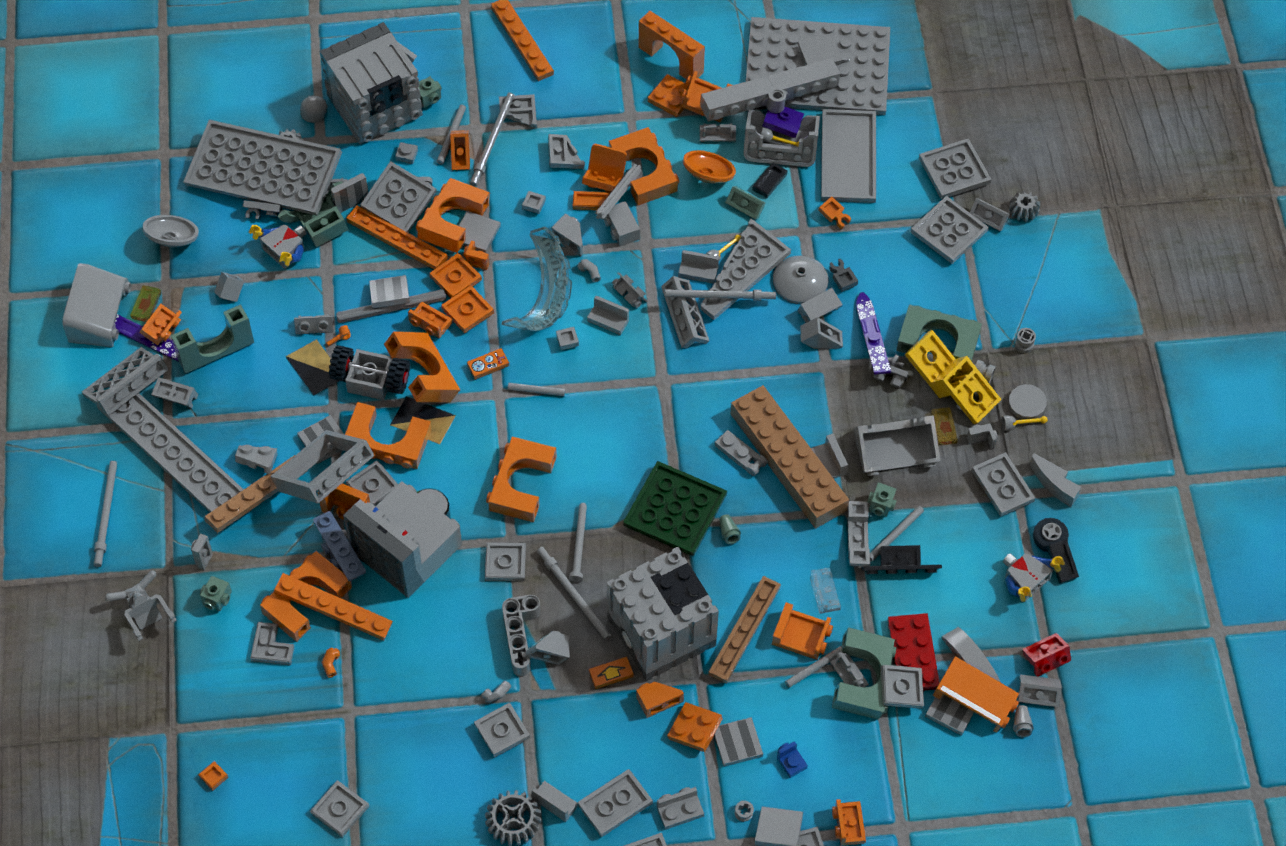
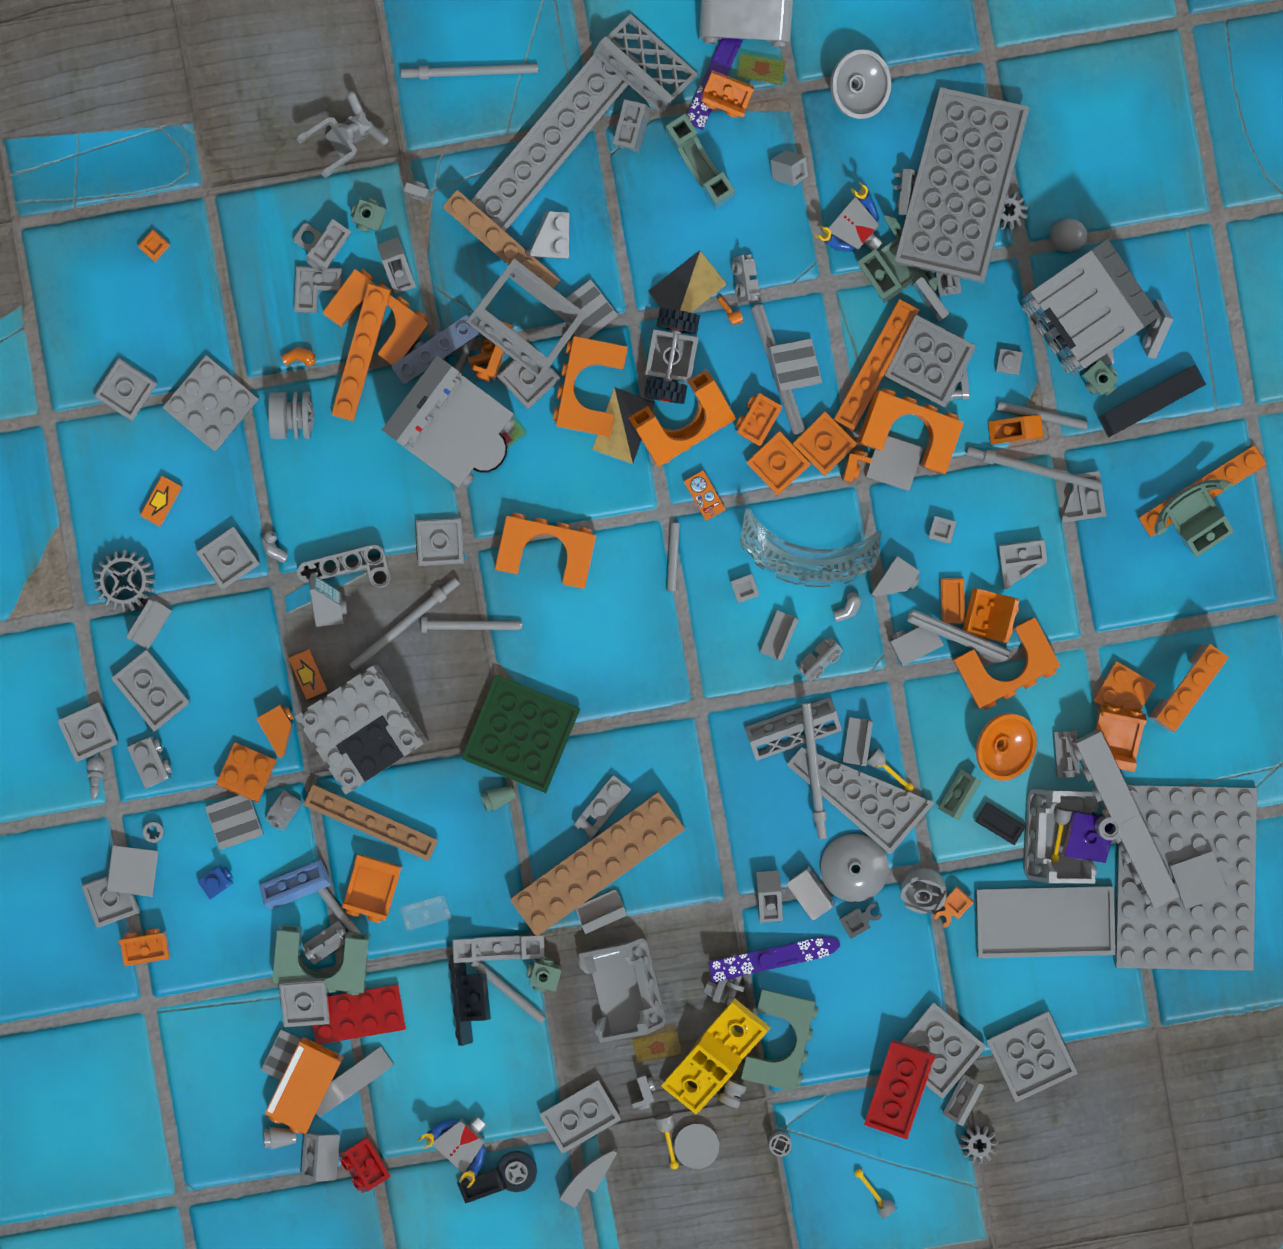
camera: 85 degrees right, 30 degrees up
(239, 630) = (325, 245): none -> light grey piece
(260, 576) = (396, 265): none -> light grey slope
(361, 737) = (210, 403): none -> light grey plate
(381, 664) = (290, 415): none -> light grey wheel
(444, 784) = (161, 501): none -> orange tile
(449, 63) = (1152, 401): none -> black beam
(543, 37) = (1196, 517): none -> sand green piece
(731, 698) = (283, 810): none -> light grey bracket
(797, 693) = (294, 885): none -> medium blue slope
(820, 226) = (923, 890): none -> light grey cylinder
(980, 253) = (899, 1089): none -> red plate
(1076, 272) = (885, 1206): none -> hinge

